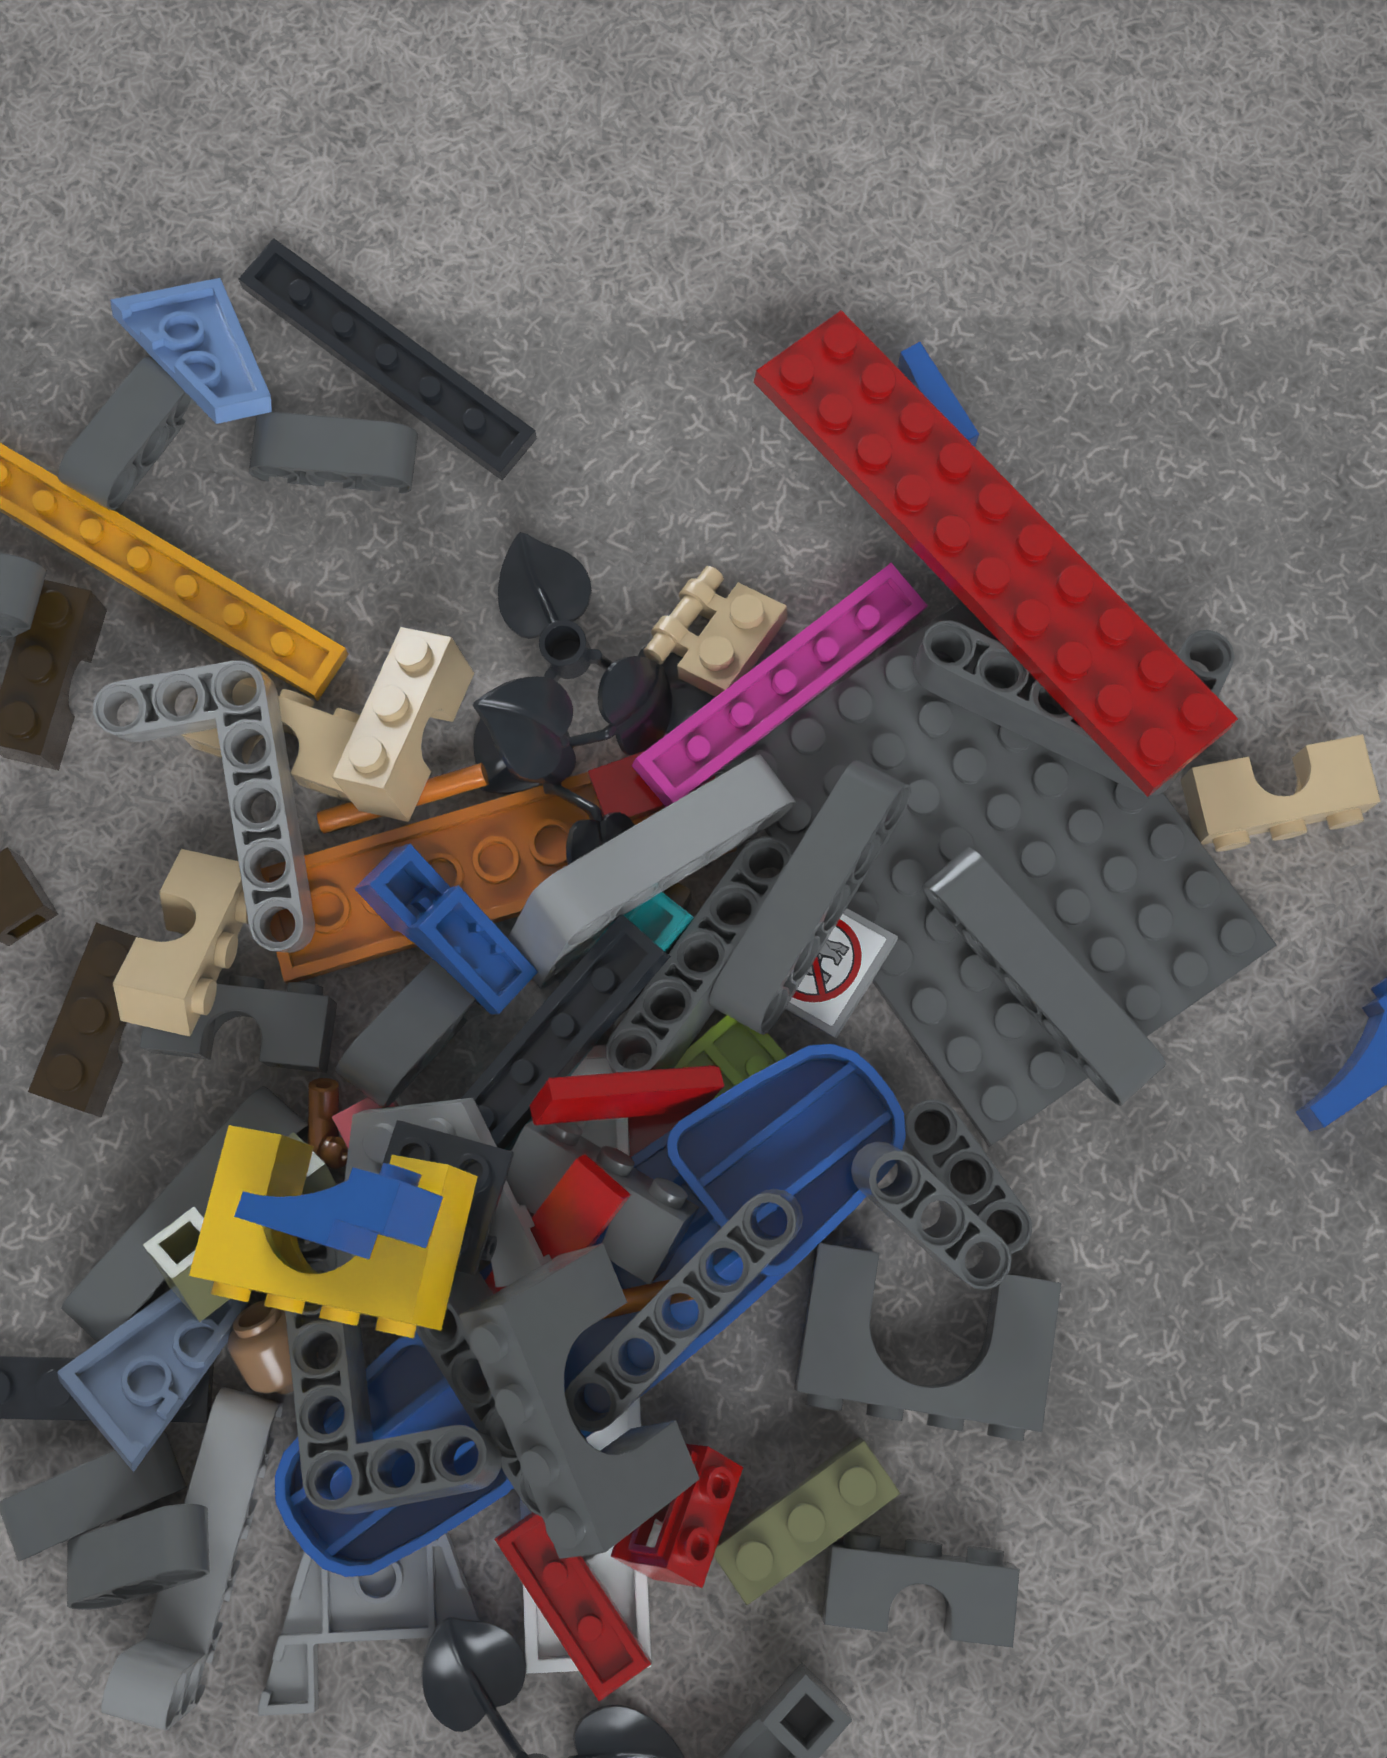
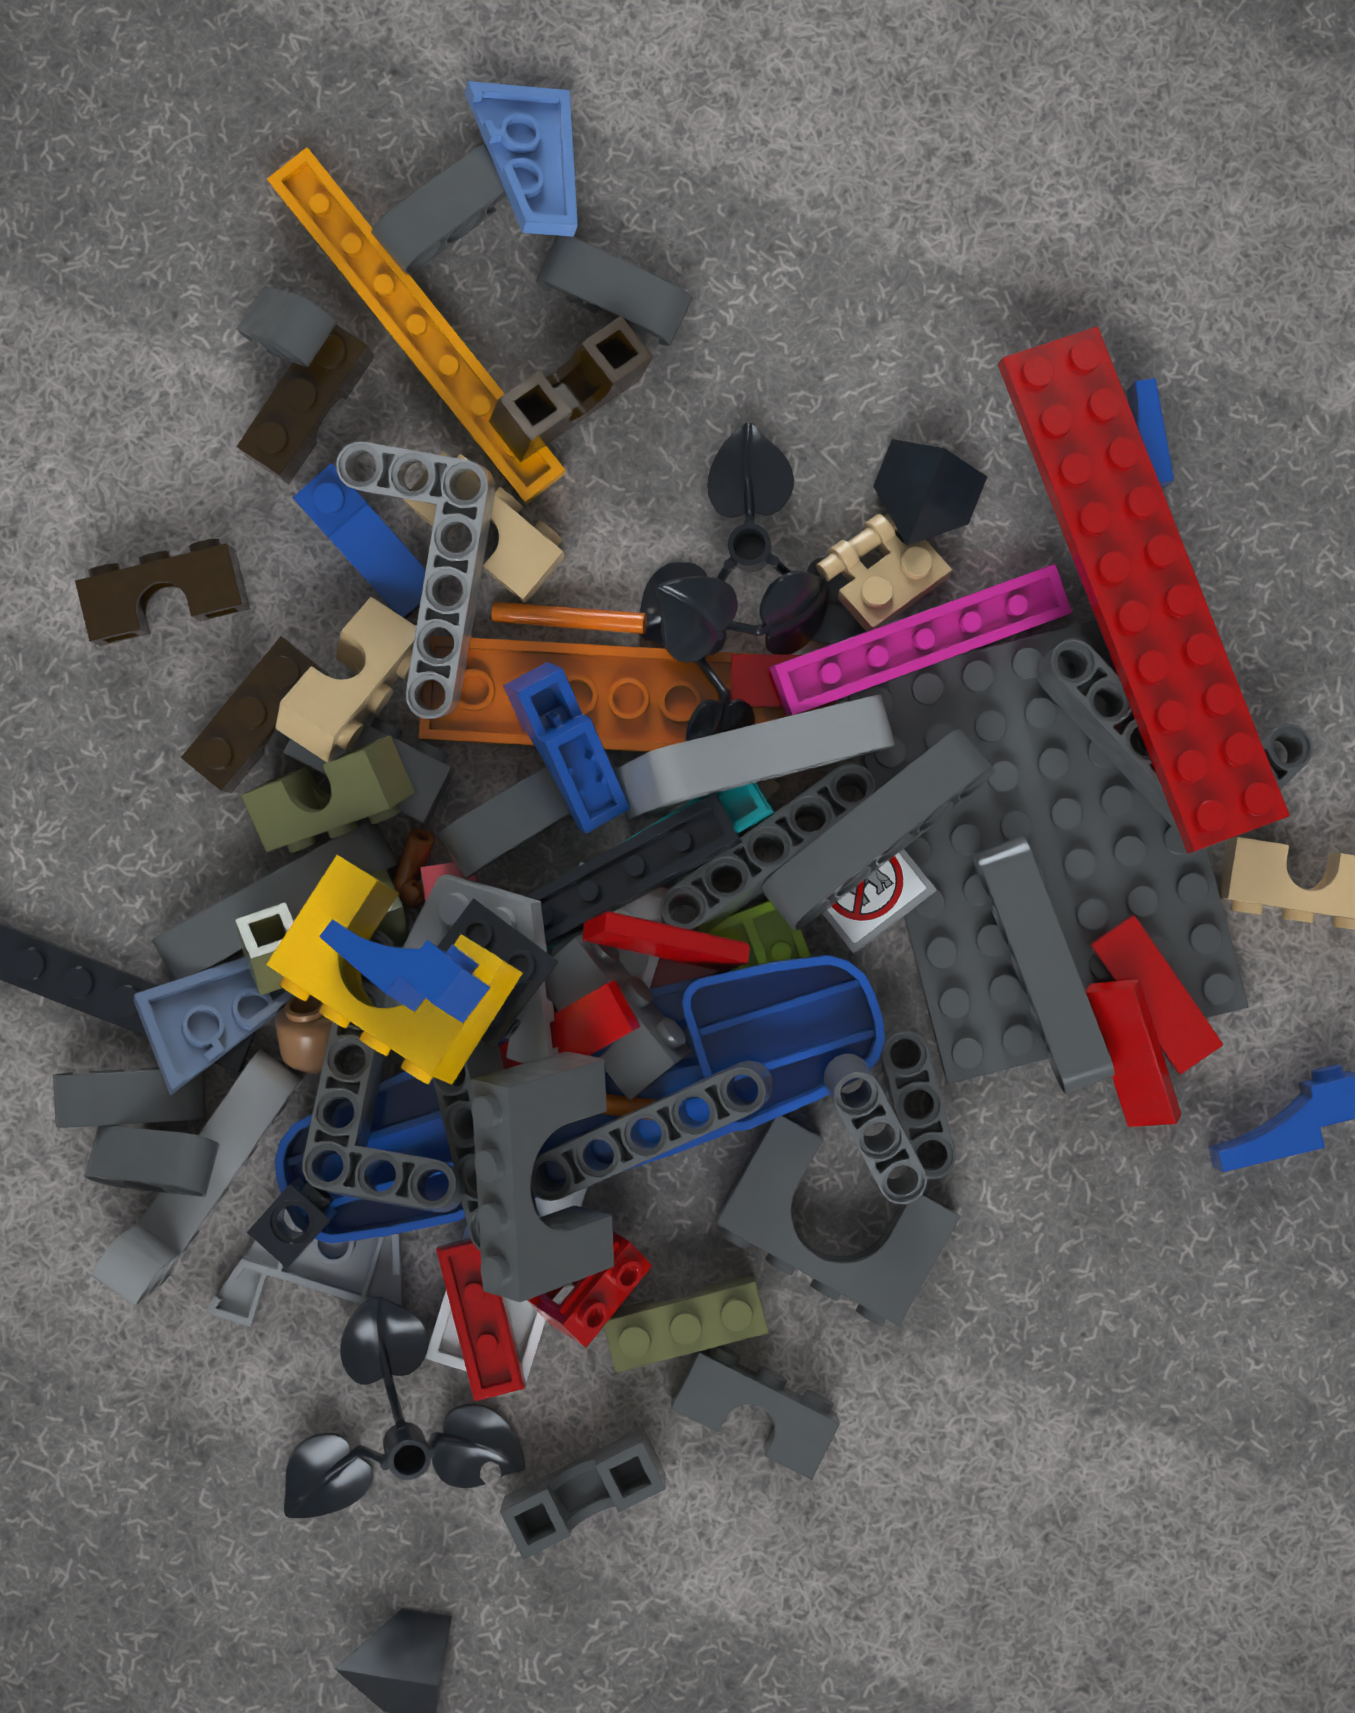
camera: 20 degrees right, 10 degrees up
(152, 793) = (364, 540): none -> blue slope
(234, 1043) = (362, 782): none -> olive arch
(298, 1583) = (273, 1231): none -> black brick
(299, 590) = (551, 405): none -> dark brown arch
(383, 758) = (566, 581): tan arch -> none
(388, 359) = (689, 218): black plate -> none
(730, 534) = (927, 489): none -> black slope
(1175, 965) = (1178, 1022): none -> red tile
(1192, 1052) = (1135, 1052): none -> red tile

